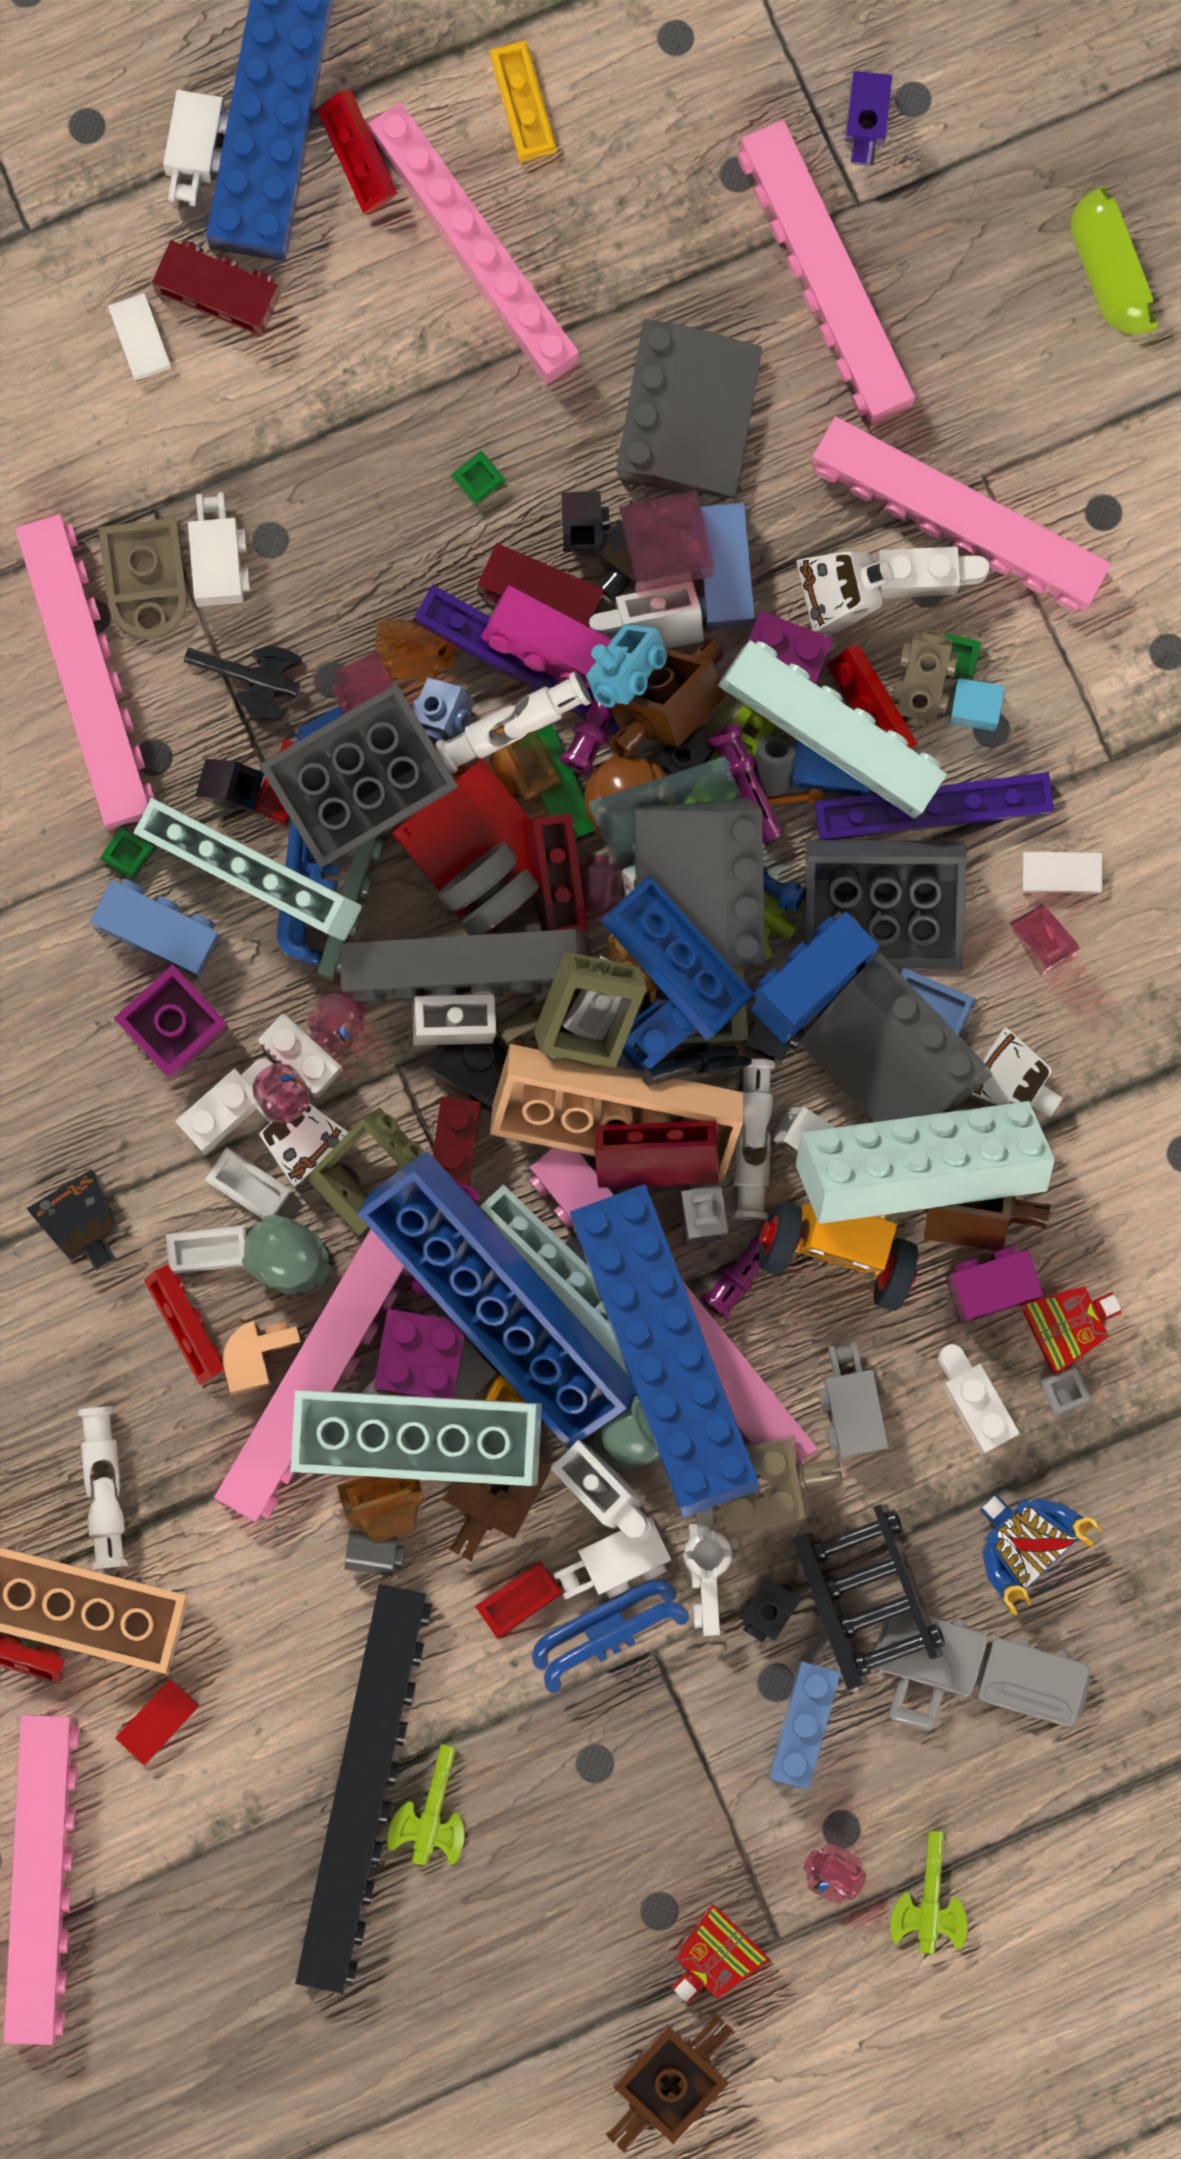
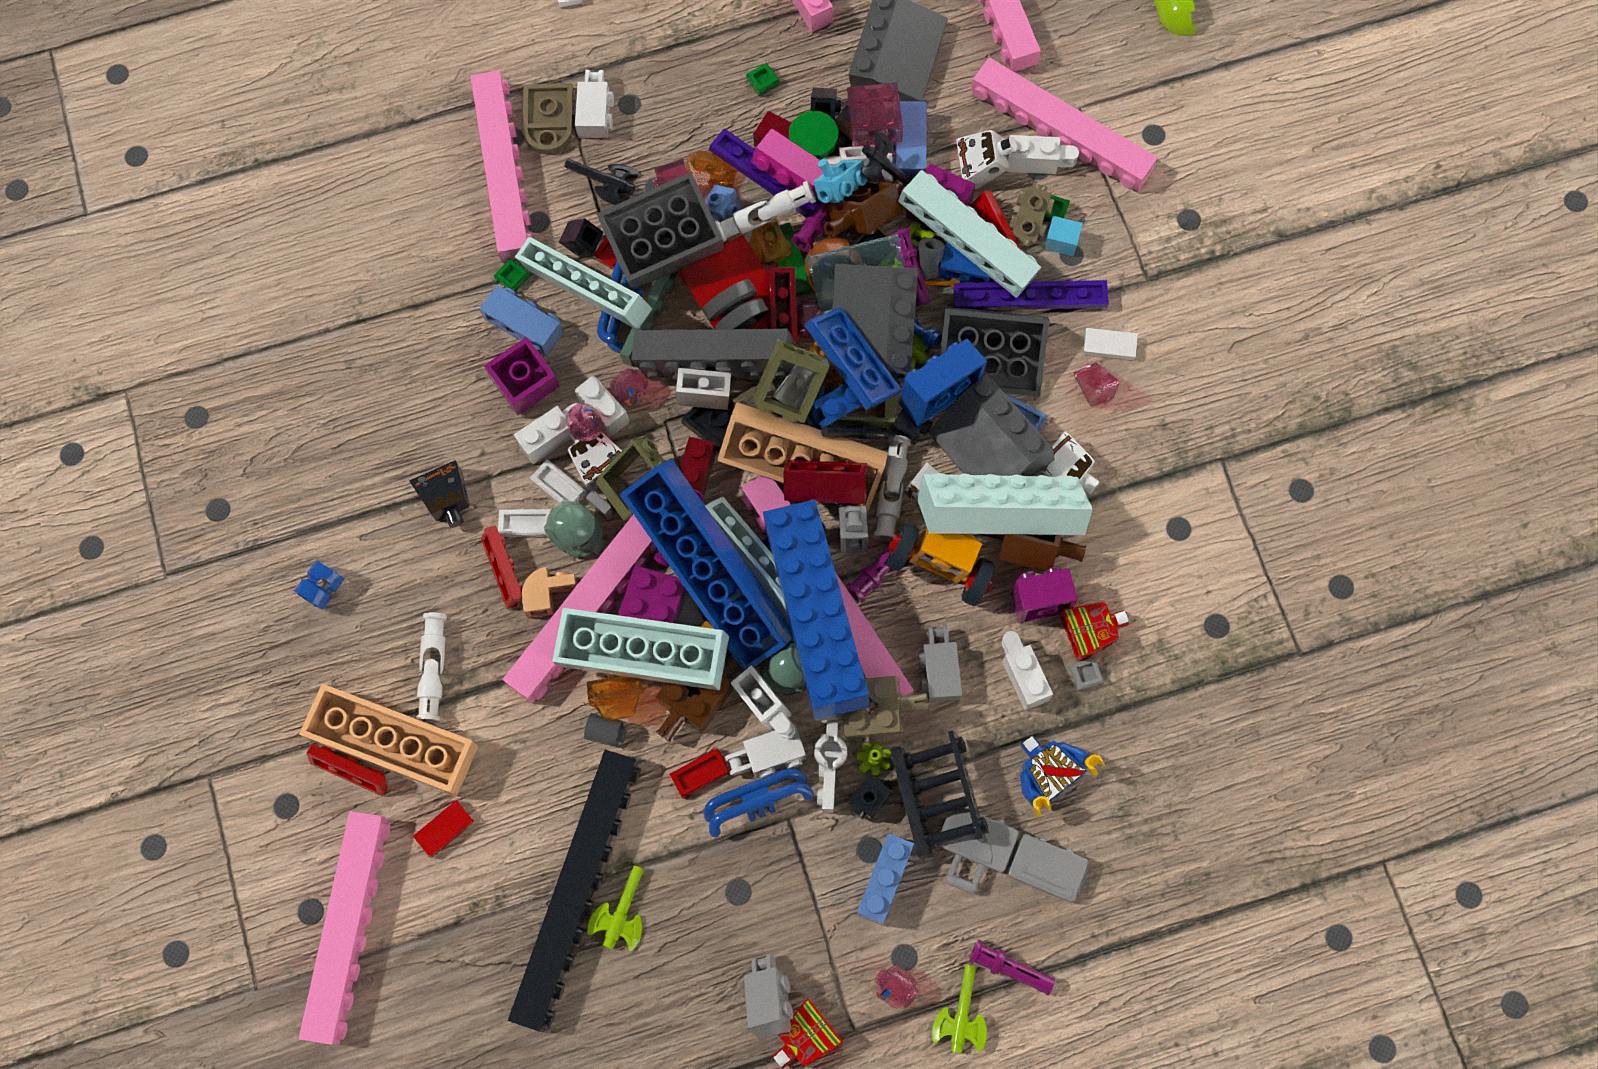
camera: 15 degrees right, 10 degrees down
(319, 1213) = (600, 505): none -> light grey tile
(574, 580) = (814, 133): none -> green tile
(656, 1911) = (767, 999): none -> light grey brick
(682, 622) = (879, 161): none -> black piece
(762, 1556) = (871, 762): none -> lime plant
(974, 1823) = (998, 962): none -> magenta pin

